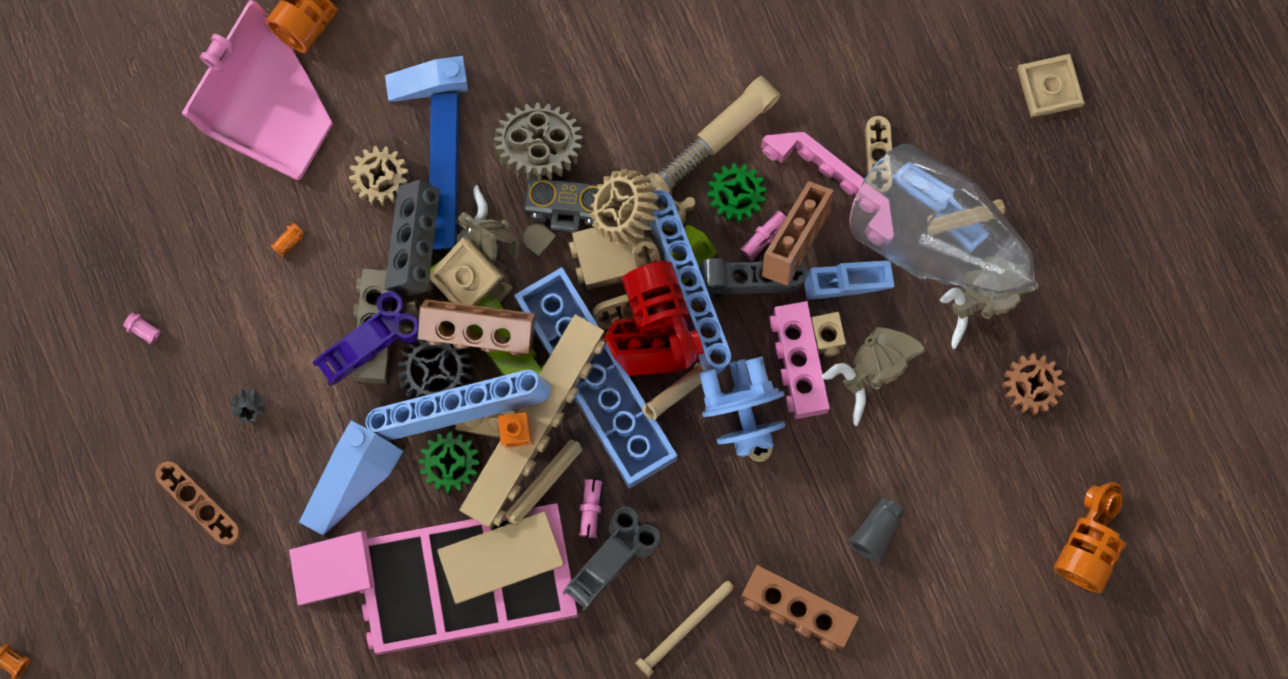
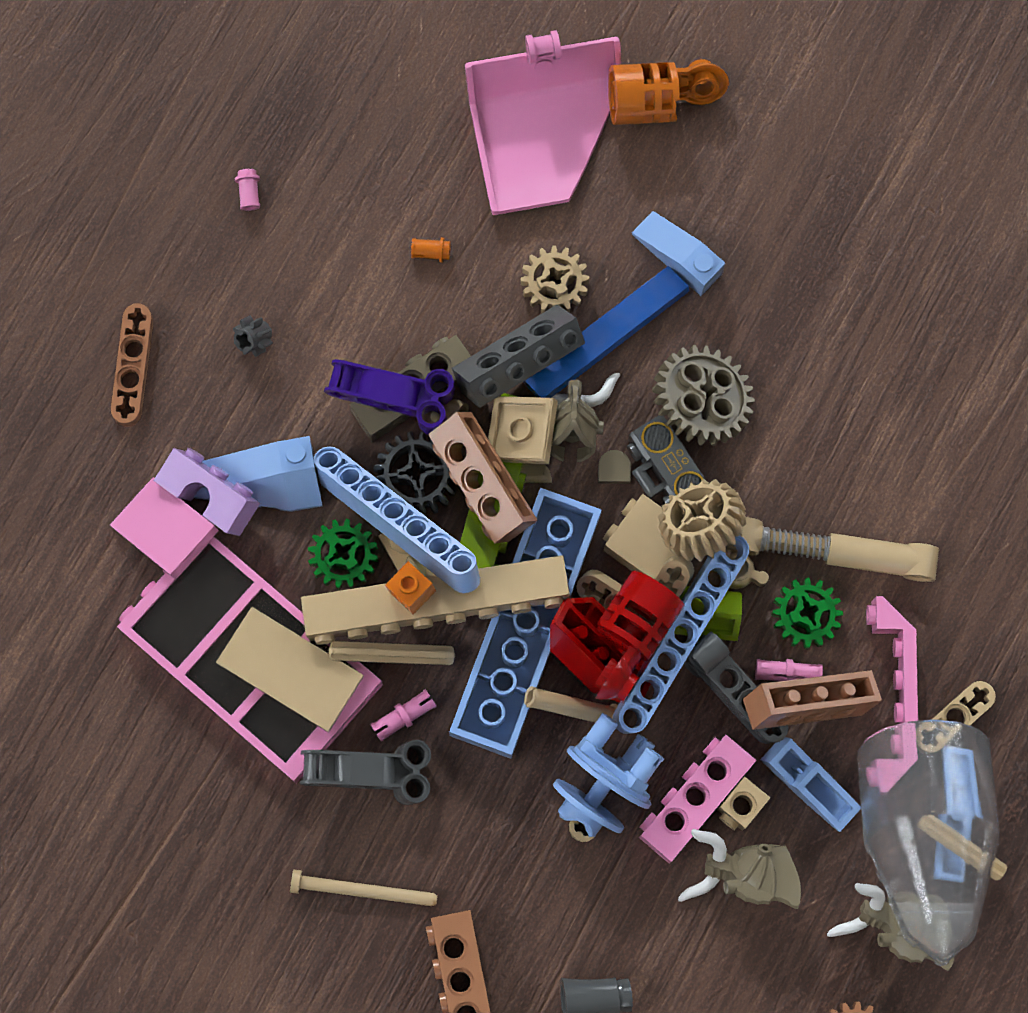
camera: 50 degrees right, 0 degrees up
(354, 510) = (229, 504): none -> lavender arch

